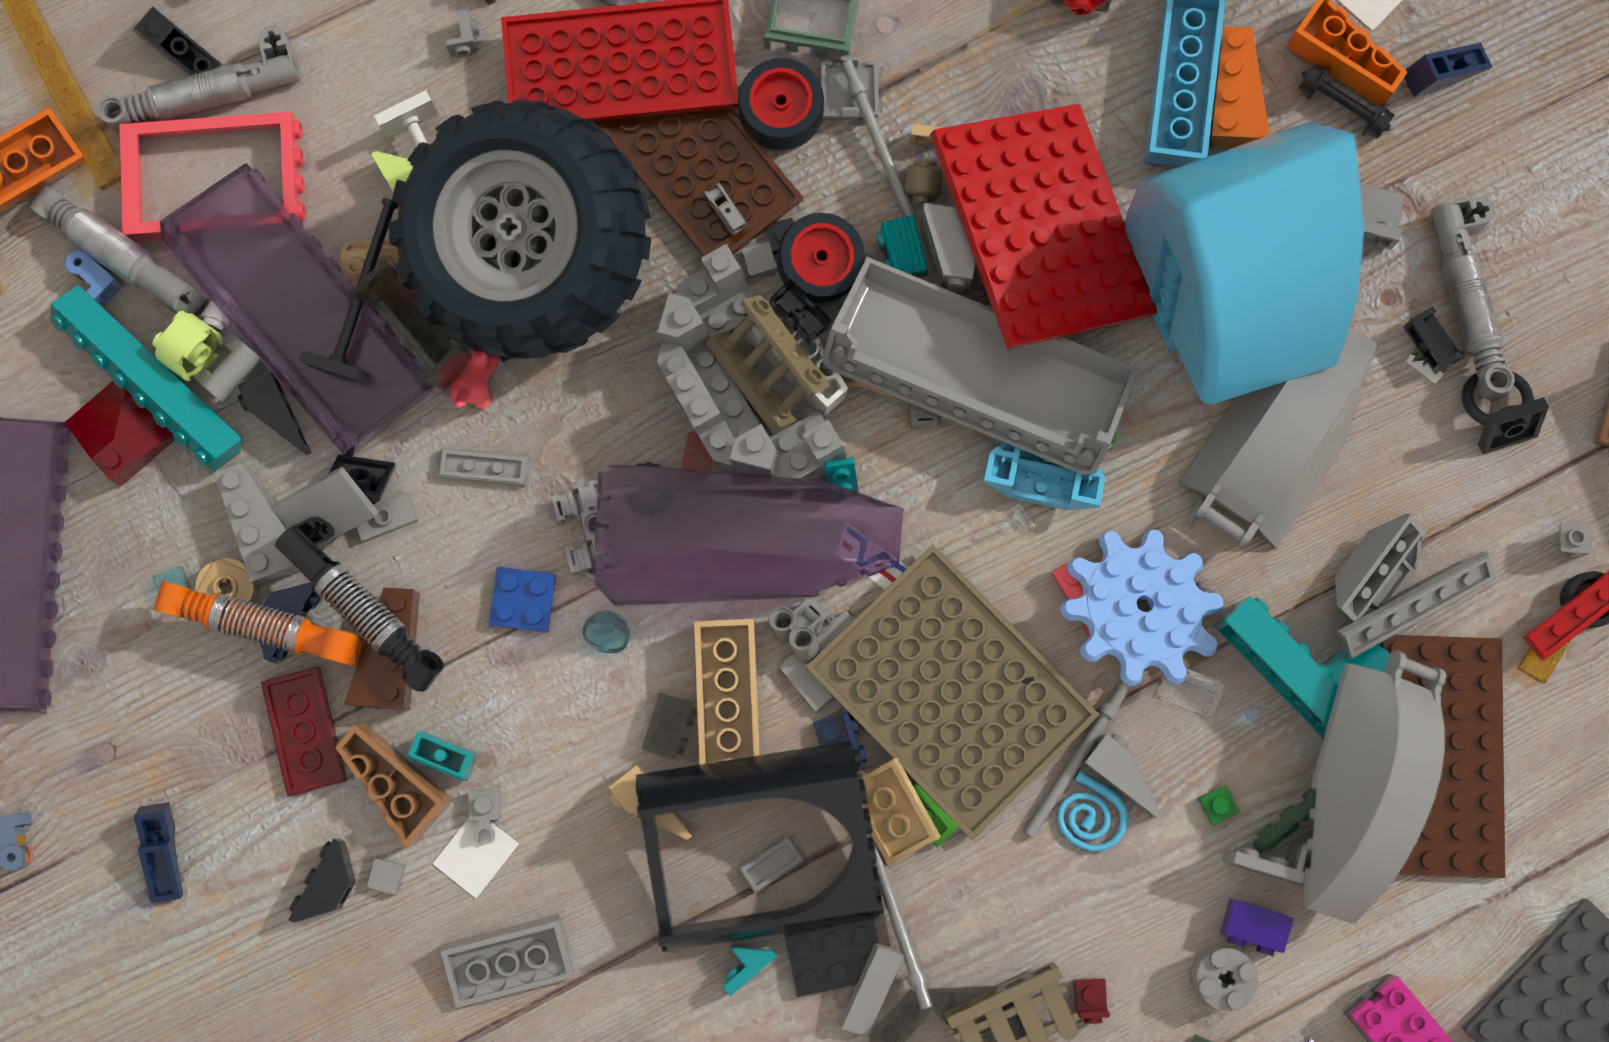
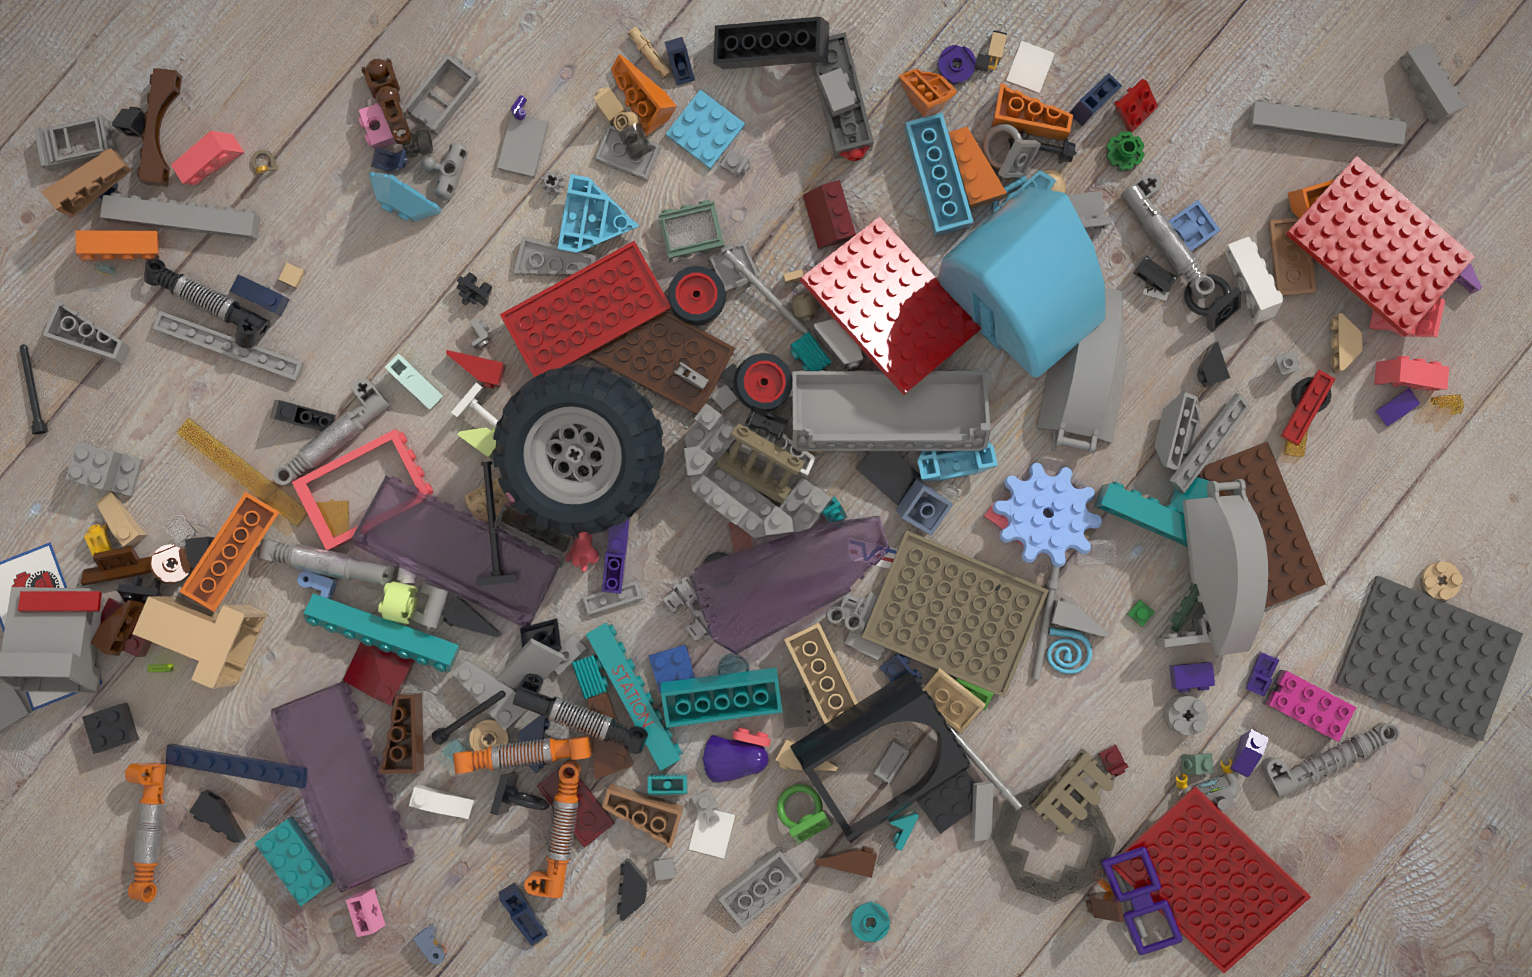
camera: 25 degrees left, 5 degrees up
(112, 532) = (405, 737): none -> reddish brown wedge
(118, 646) = (441, 802): none -> white slope
(158, 195) = (336, 515): none -> clear yellow piece
(163, 553) = (442, 734): none -> black piece
(213, 672) = (508, 794): none -> black tile
(247, 787) = (558, 853): none -> orange piece
(346, 60) = (414, 381): none -> light aqua slope
(403, 559) = (590, 676): none -> teal brick
(450, 87) = (484, 370): none -> red slope
(451, 613) = (633, 695): none -> teal brick
(514, 409) = (616, 558): none -> dark purple slope
(550, 763) = (733, 759): none -> dark purple hair
(570, 666) = (721, 697): none -> teal brick
(580, 734) = (743, 735): none -> coral plate
(614, 901) = (809, 824): none -> bright green tile
(656, 981) = (854, 860): none -> reddish brown slope
(943, 457) = (888, 473): none -> black tile
(971, 523) = (923, 507): none -> sand blue slope
(1010, 71) = (829, 214): none -> dark red slope
(1308, 97) = (1018, 157): none -> light grey tile
(1359, 967) = (1261, 673): none -> dark purple slope
(1460, 155) = (1125, 151): none -> green plant
(1465, 502) = (1212, 367): none -> black slope
(1502, 98) = (1136, 105): none -> red plate
(1518, 295) = (1194, 225): none -> medium blue plate
(1573, 404) = (1254, 279): none -> white wedge

